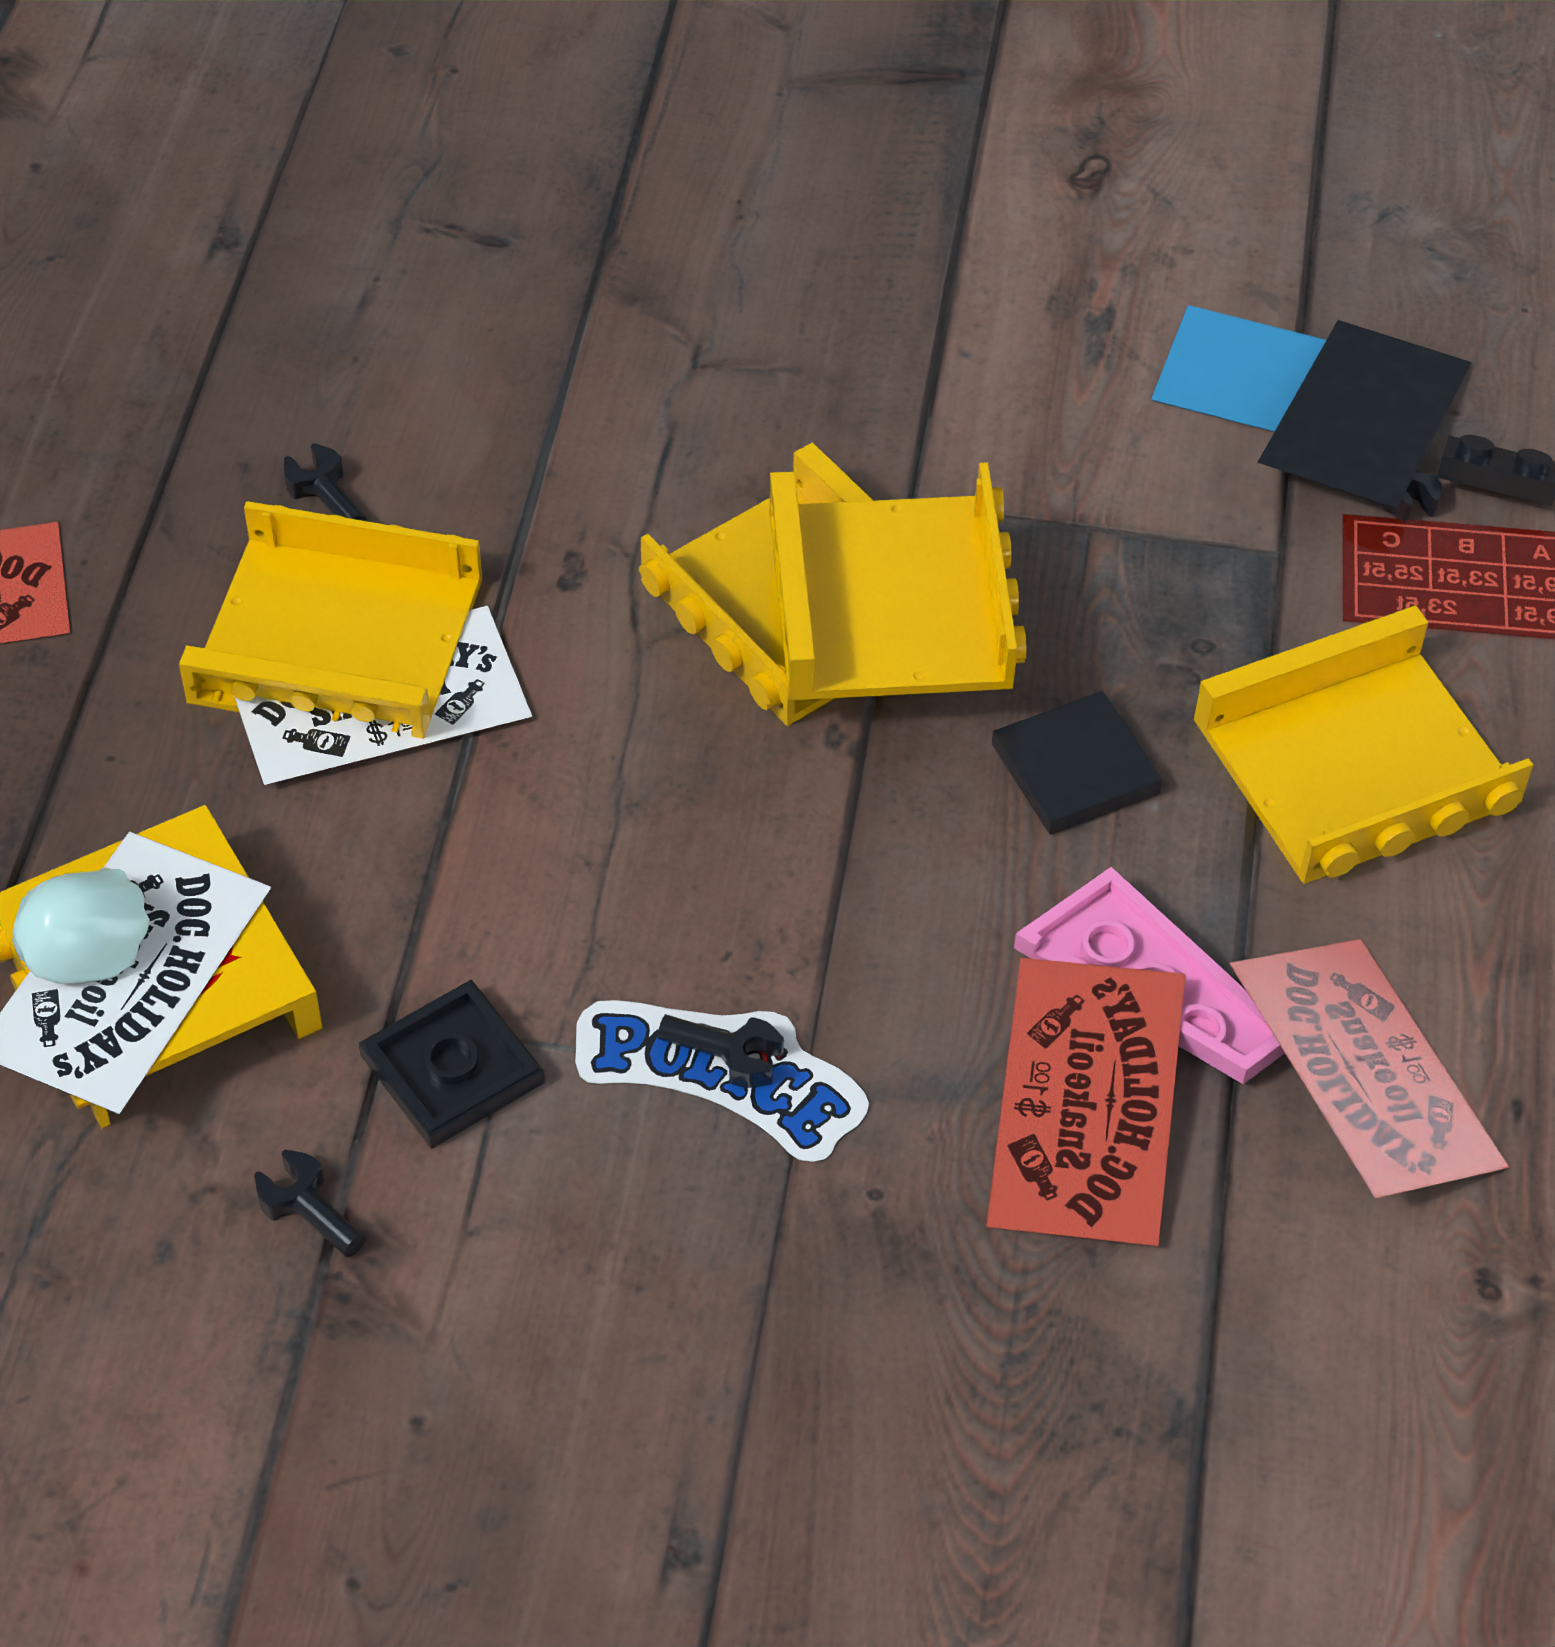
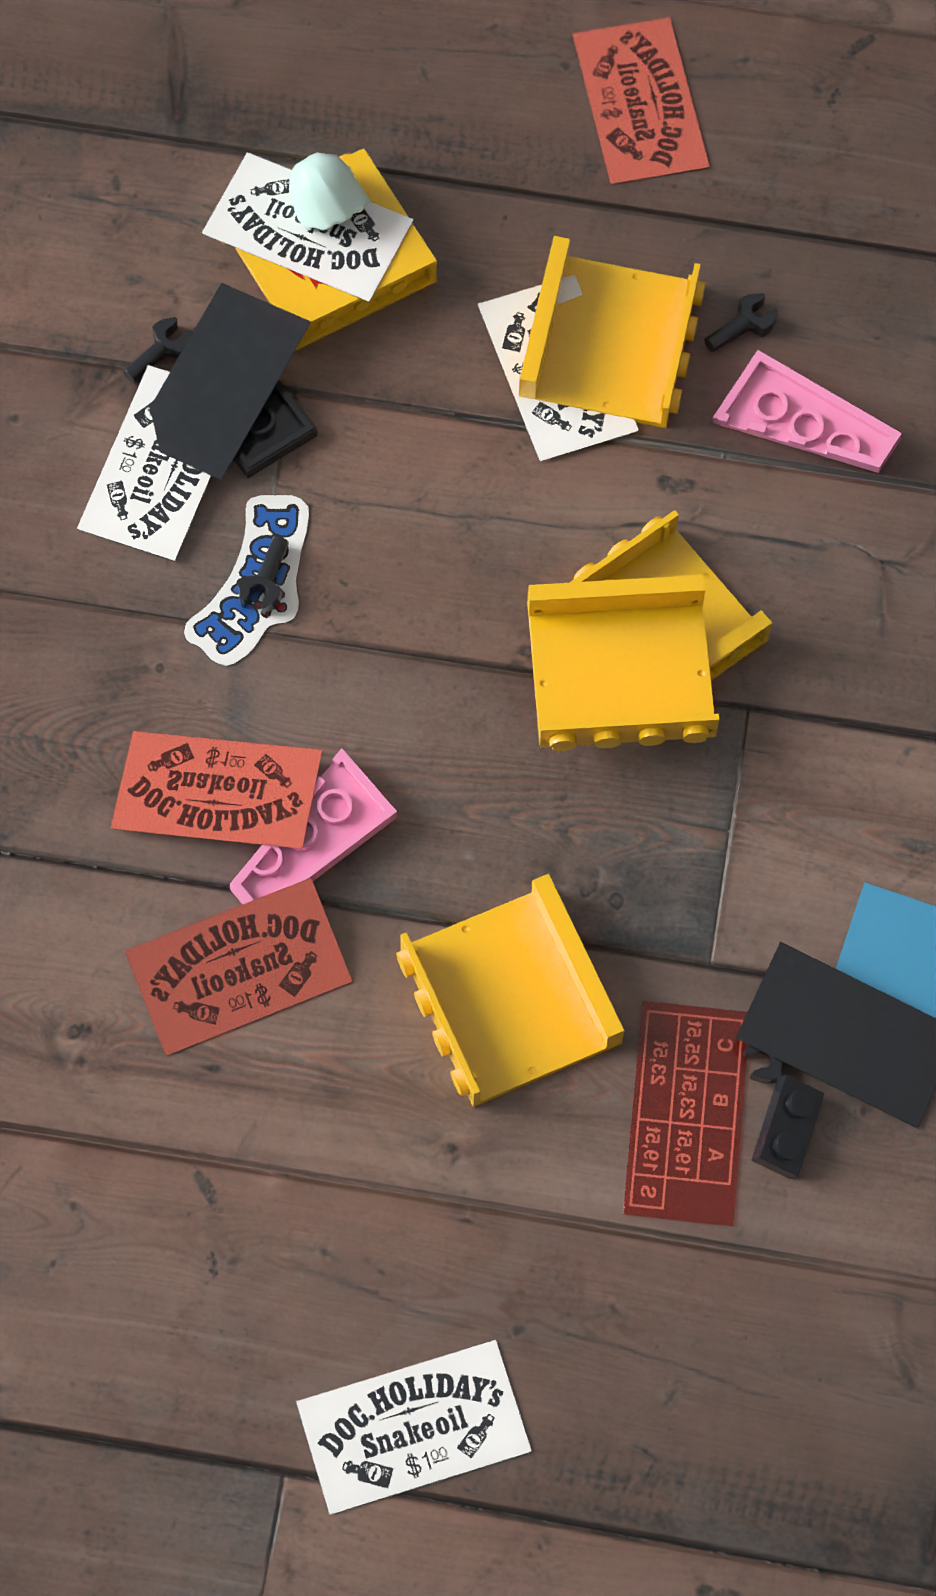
camera: 90 degrees right, 15 degrees up
(387, 1097) = (223, 379): none -> black sticker
(477, 427) = (801, 414): none -> bright pink wing
(519, 1192) = (141, 493): none -> white sticker
(1076, 762) = (500, 803): black tile -> none

